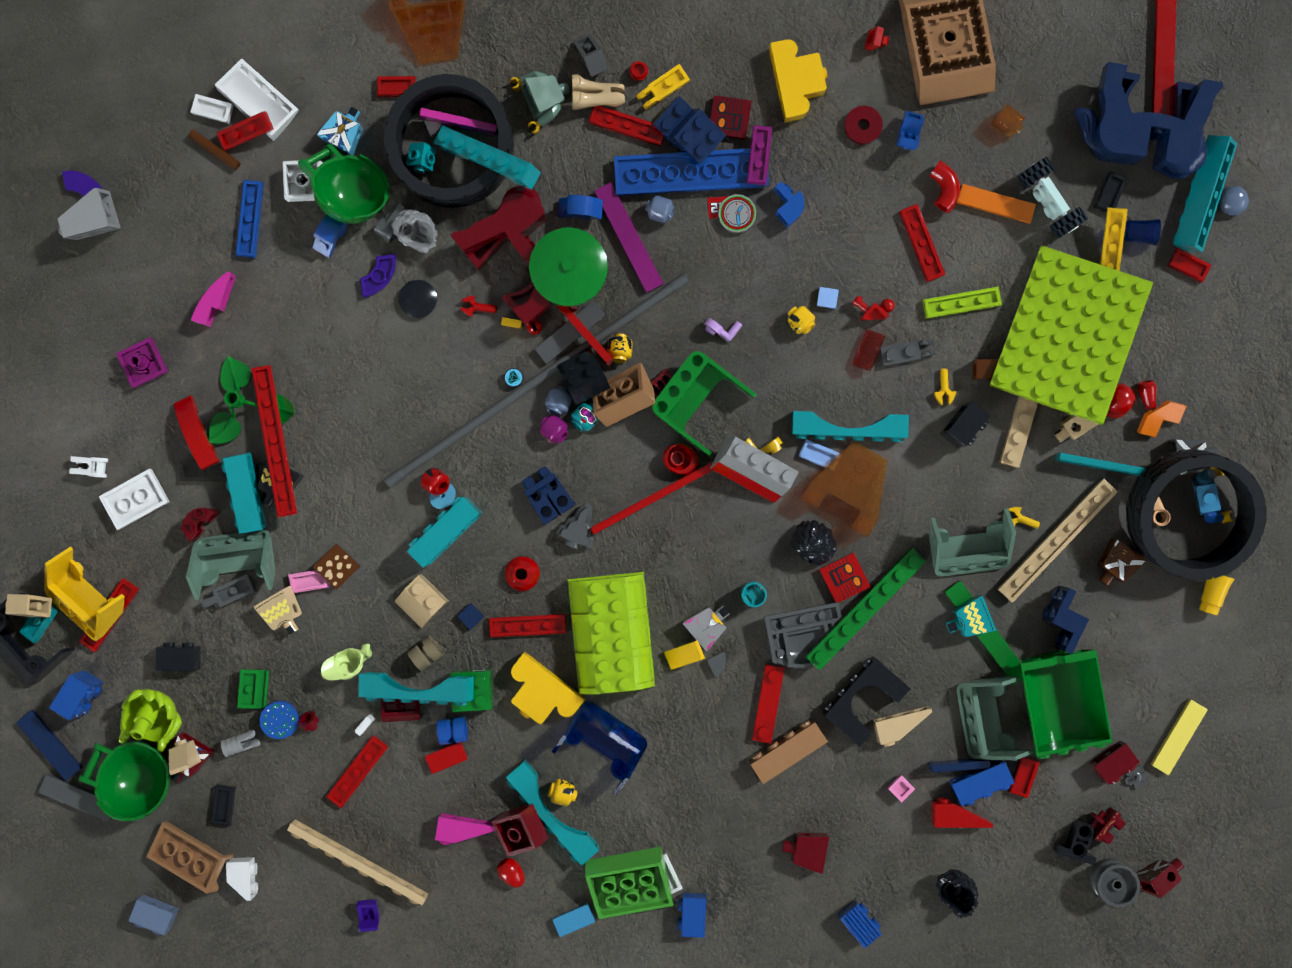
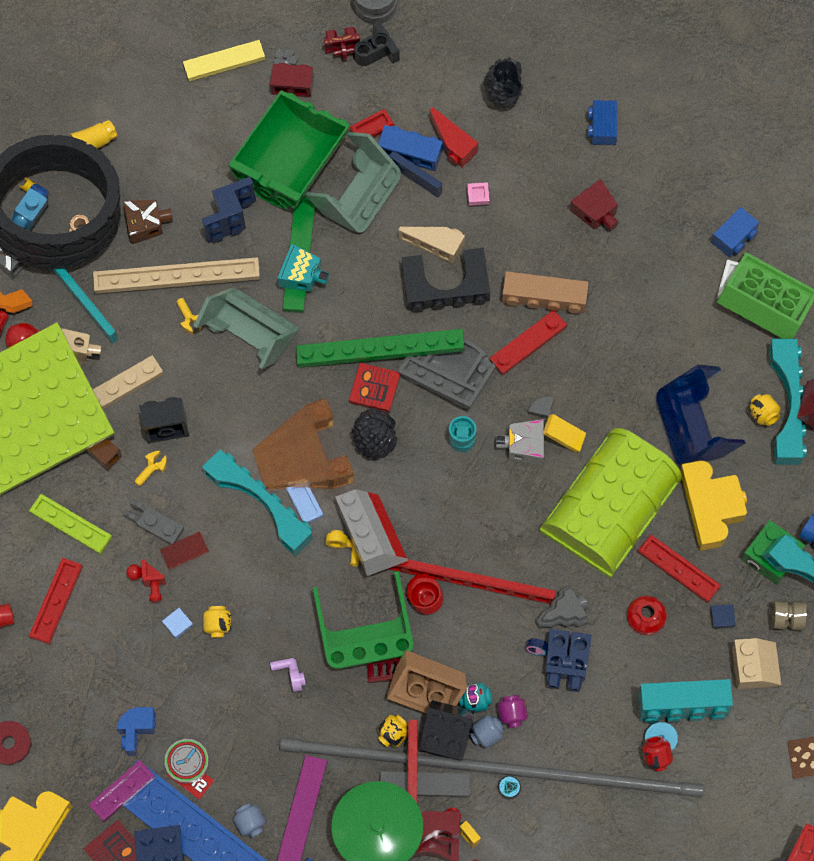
camera: 135 degrees left, 20 degrees down
(574, 487) = (537, 647): none -> clear blue tile

